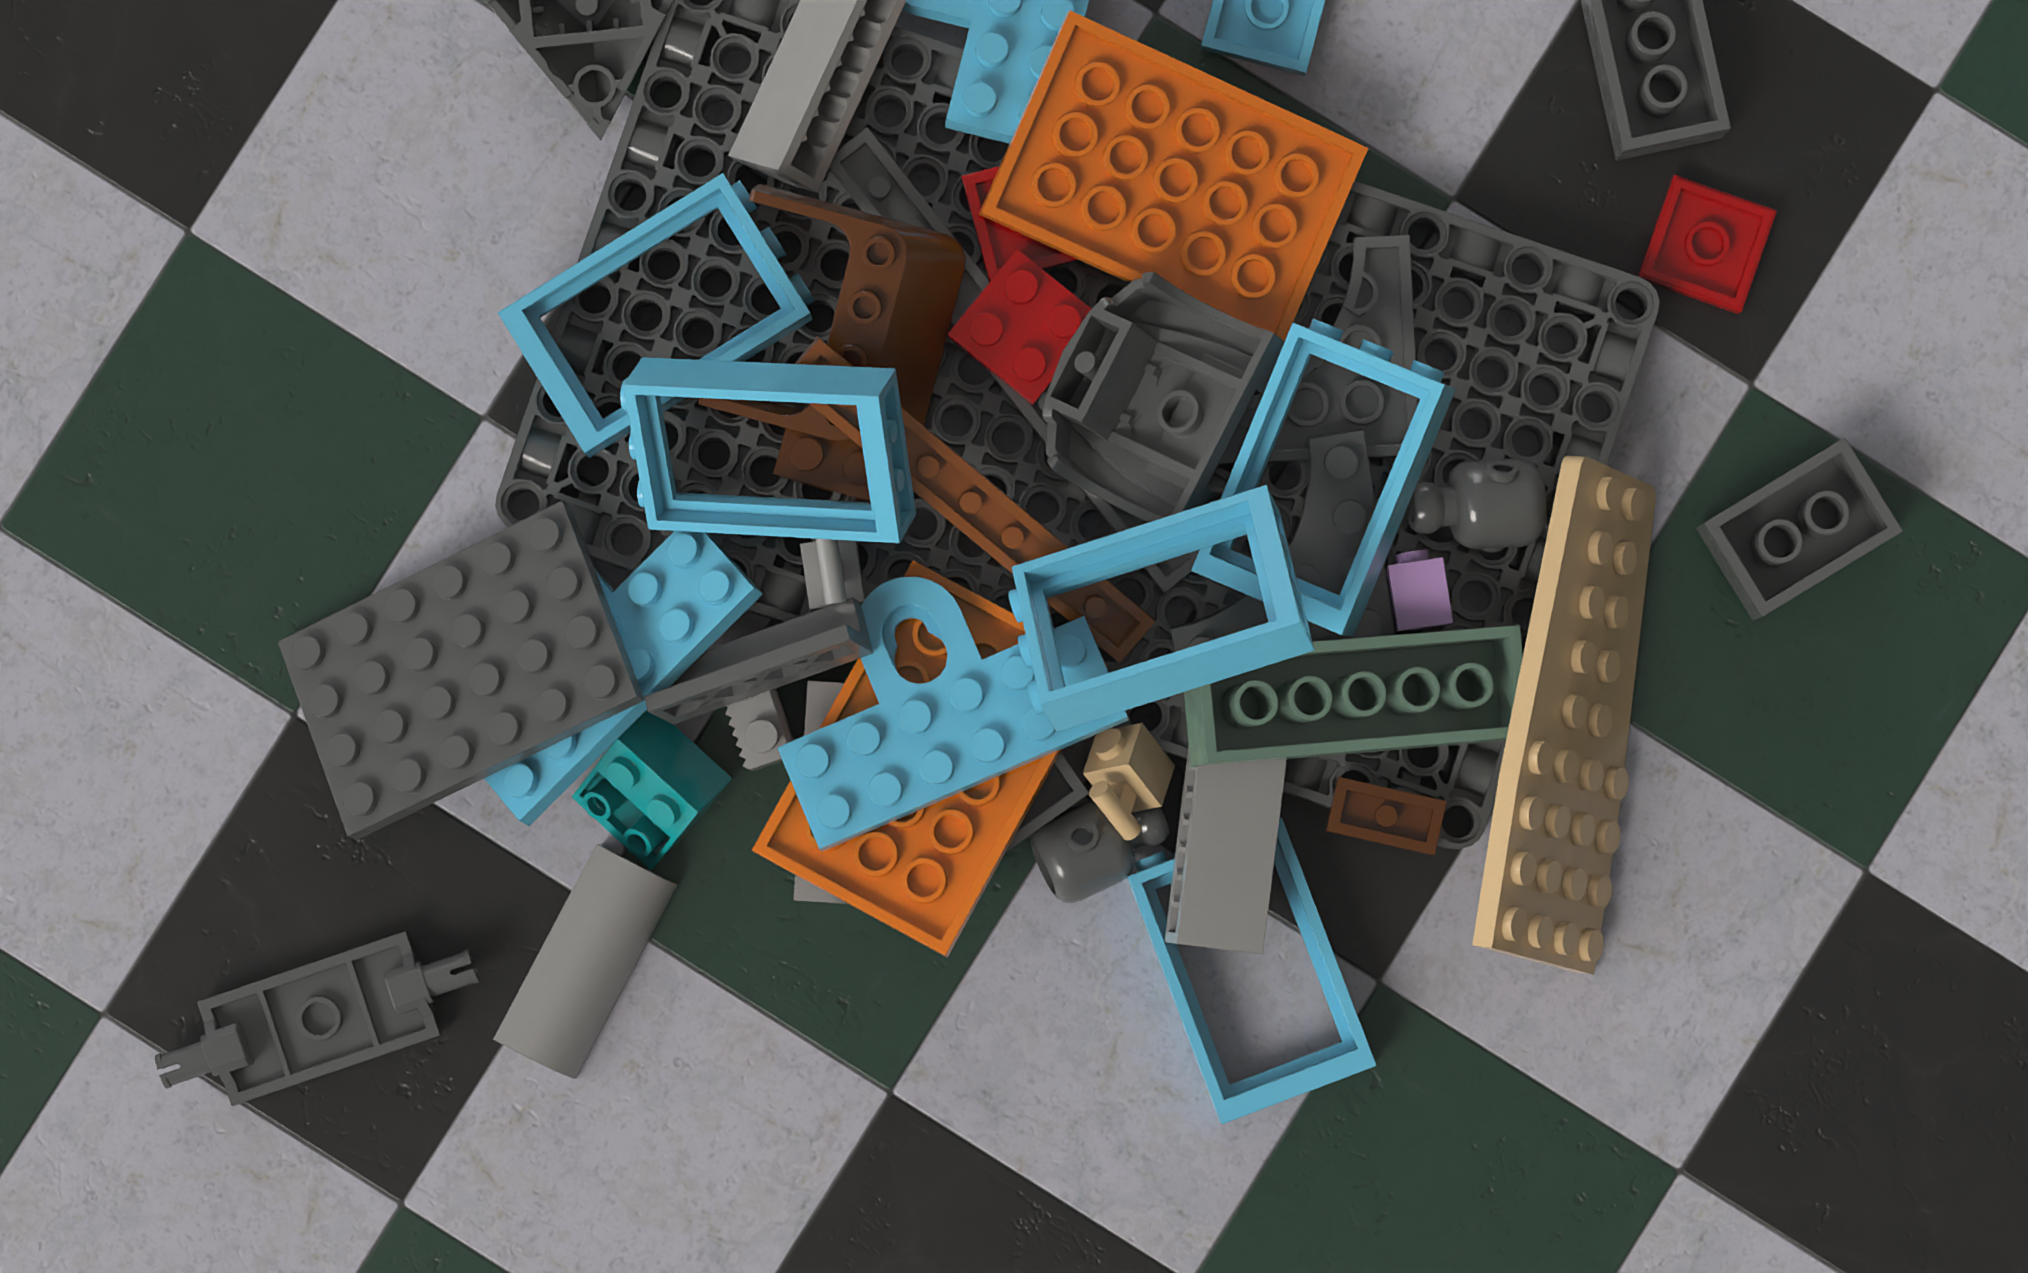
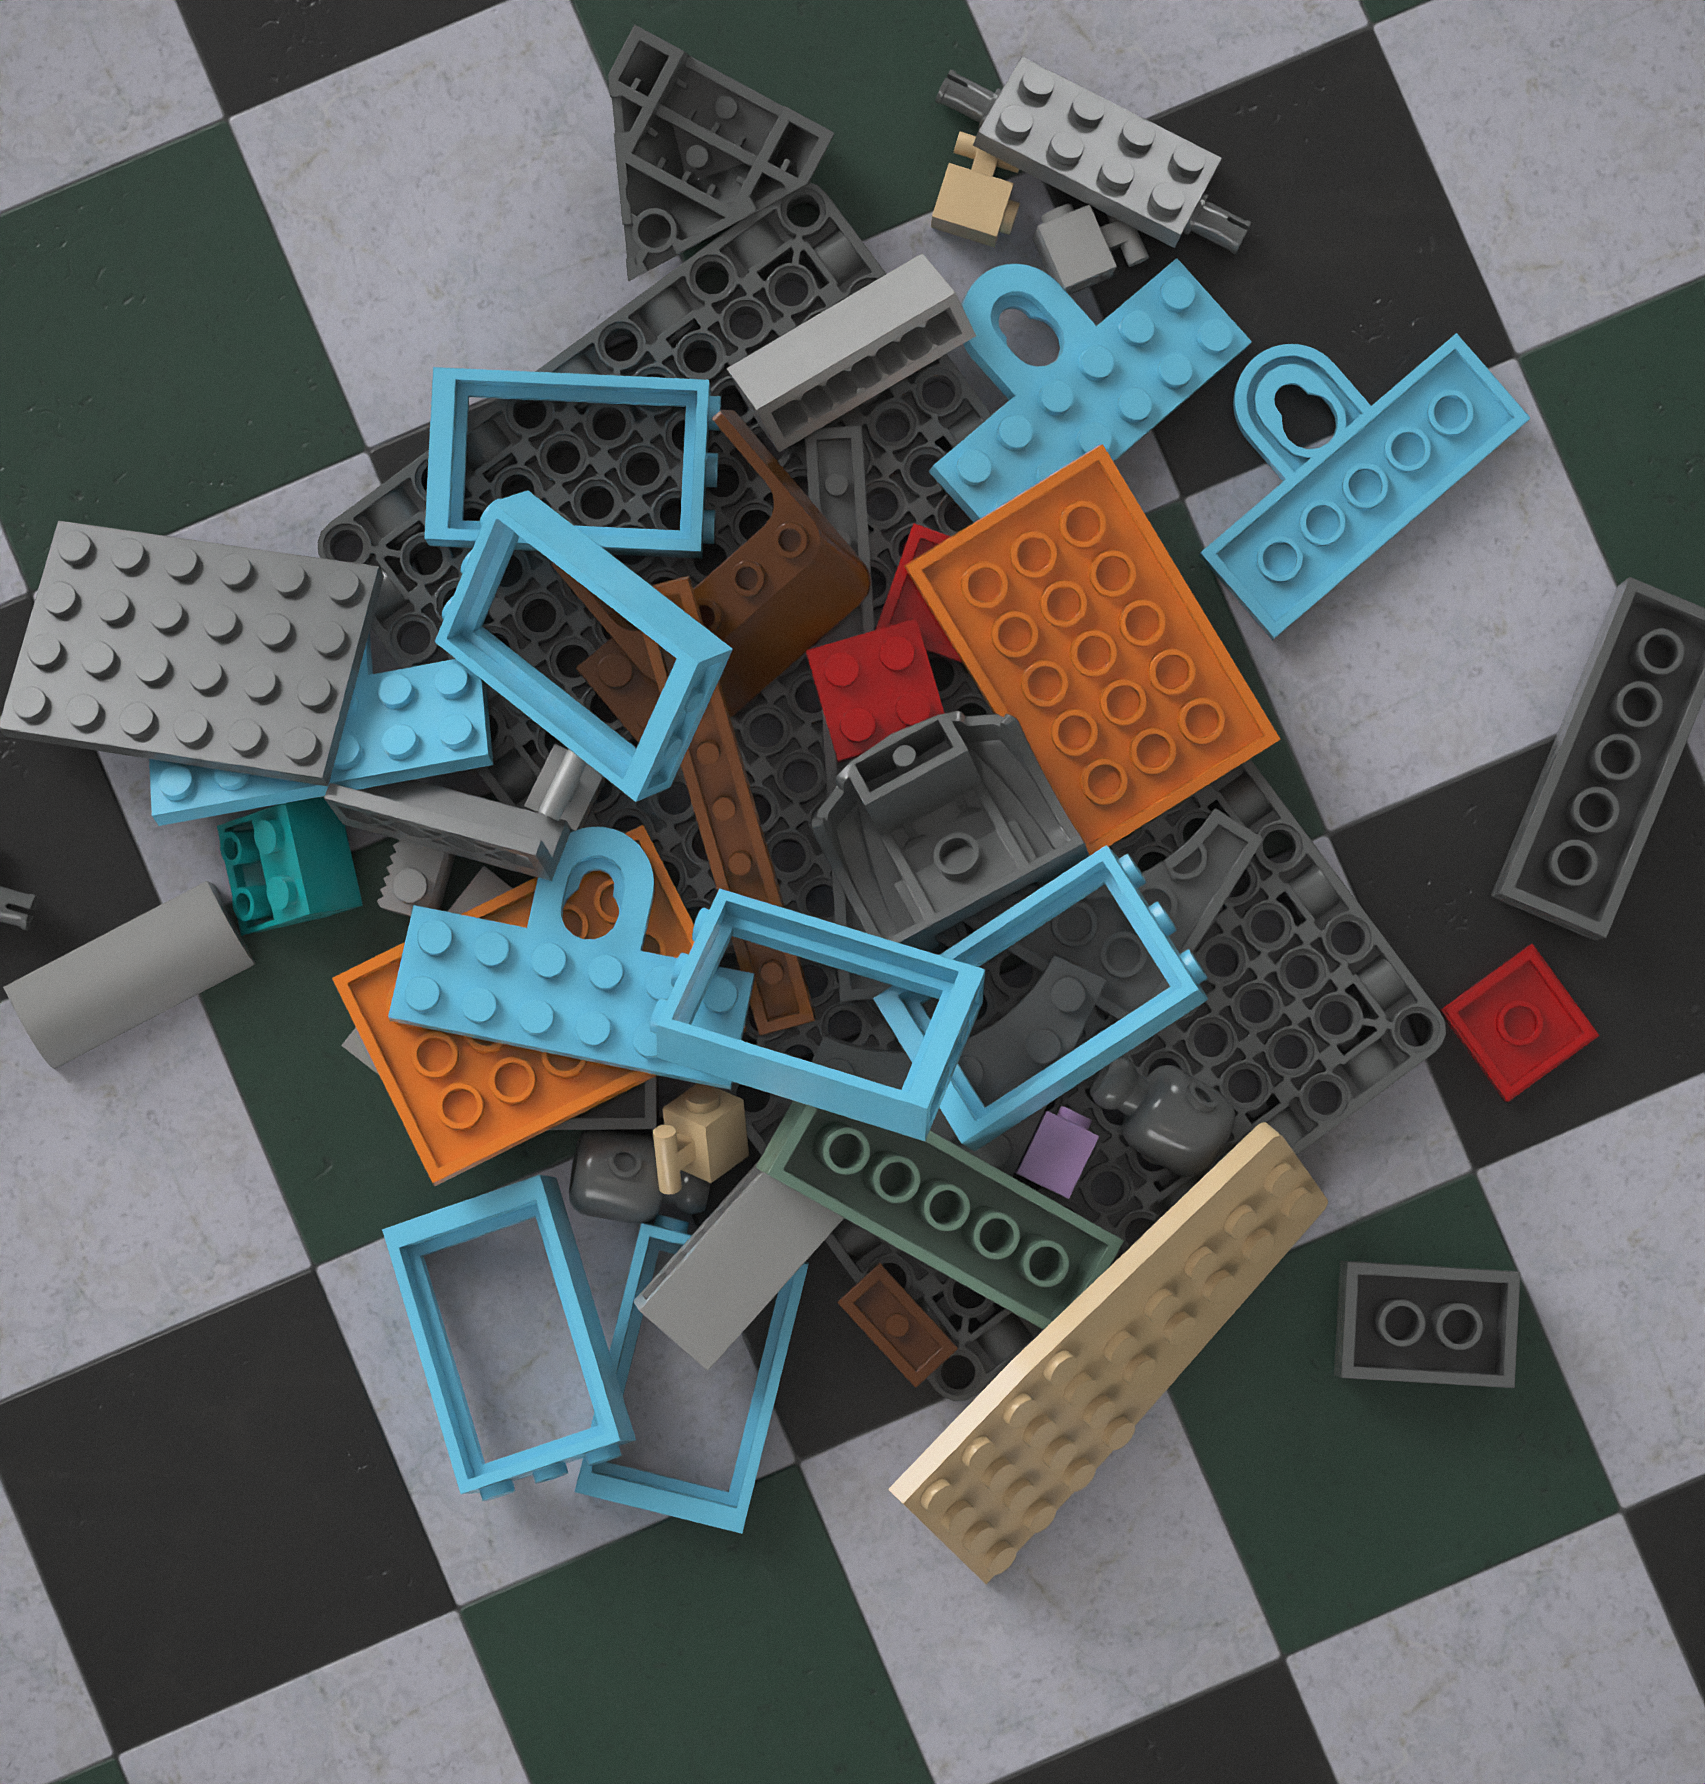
camera: 30 degrees right, 0 degrees up
(990, 968) = (465, 1221): none -> medium azure door

